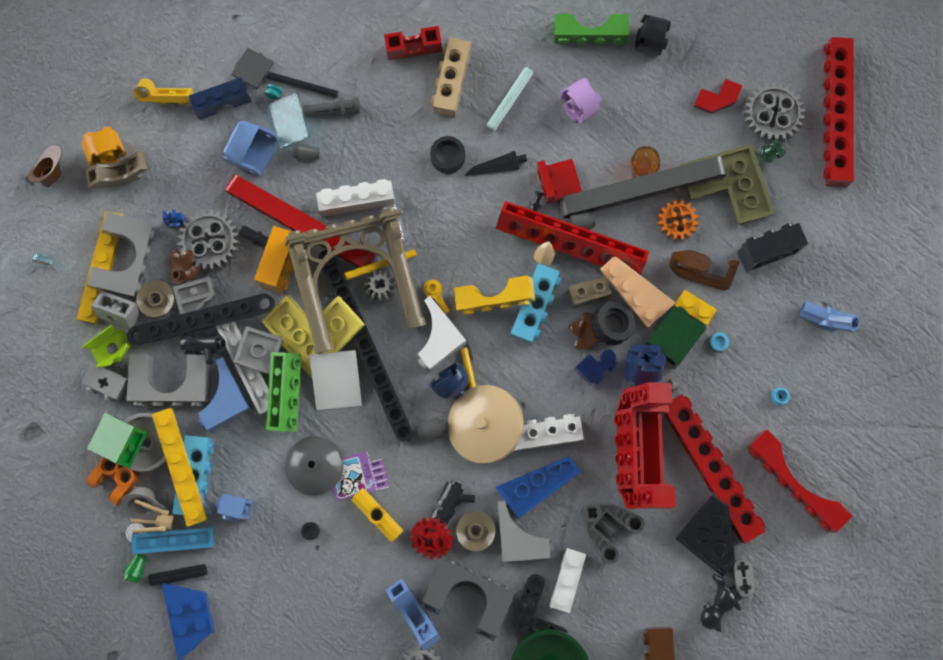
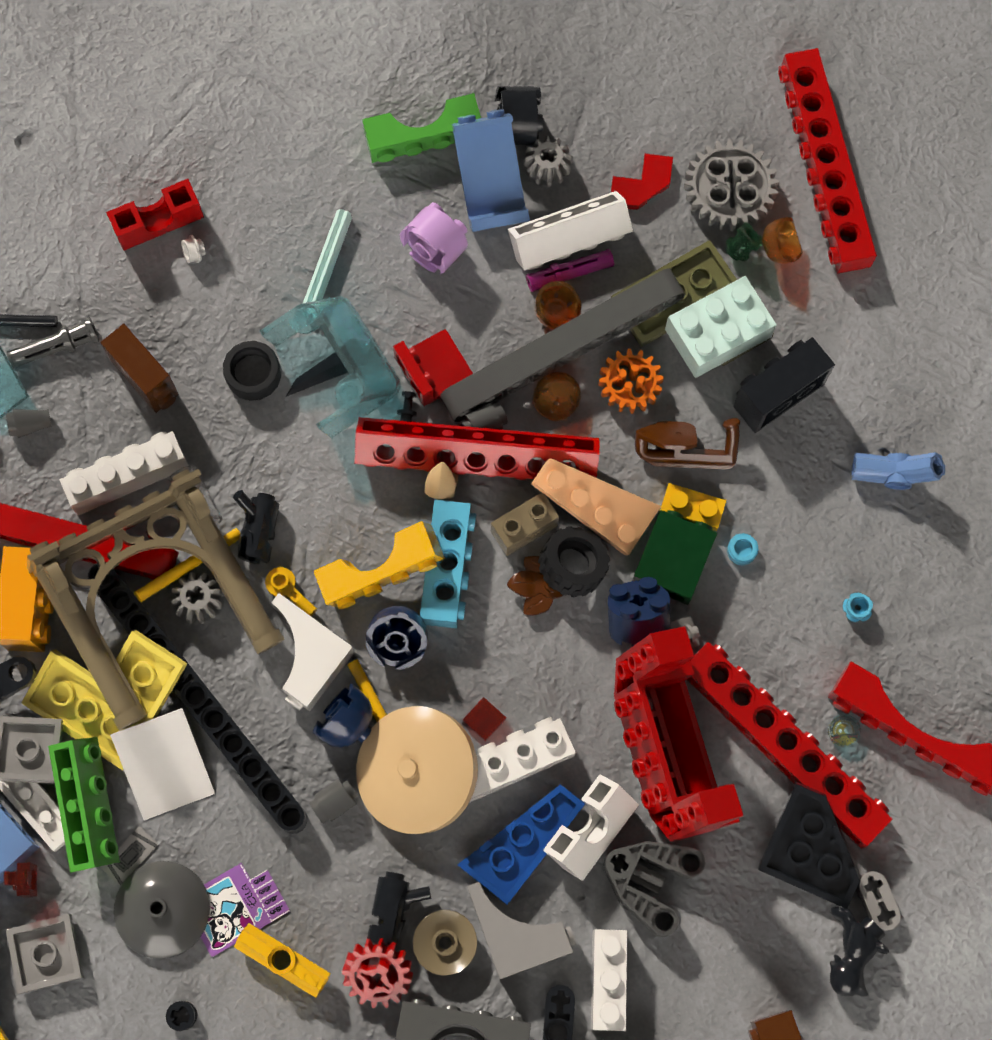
camera: 20 degrees left, 5 degrees down
(234, 507) = (48, 1010): medium blue brick -> none
(237, 426) = (23, 880): none -> clear red plate
(239, 473) = (44, 953): none -> light grey plate
(304, 428) = (131, 855): none -> sticker
(380, 137) = (140, 368): none -> reddish brown brick
(427, 252) = (258, 526): none -> black piece
(430, 70) = (193, 249): none -> white plate
(454, 49) = (235, 294): tan brick -> none
(494, 341) = (397, 637): none -> dark blue cylinder
(519, 175) = (370, 375): none -> clear light blue windscreen
(533, 404) = (484, 719): none -> clear red tile
(592, 370) = (562, 642): clear blue brick -> none
(594, 480) = (608, 812): none -> white arch
(625, 66) = (489, 170): none -> medium blue panel
(633, 213) = (559, 389): none -> clear orange helmet
(659, 65) = (548, 161): none -> light grey gear
(659, 141) = (570, 269): none -> magenta pin
(666, 116) = (570, 230): none -> white brick
(743, 200) = (720, 326): none -> light aqua brick
(750, 469) = (844, 730): none -> clear light blue tile
(796, 156) = (782, 241): none -> clear orange helmet

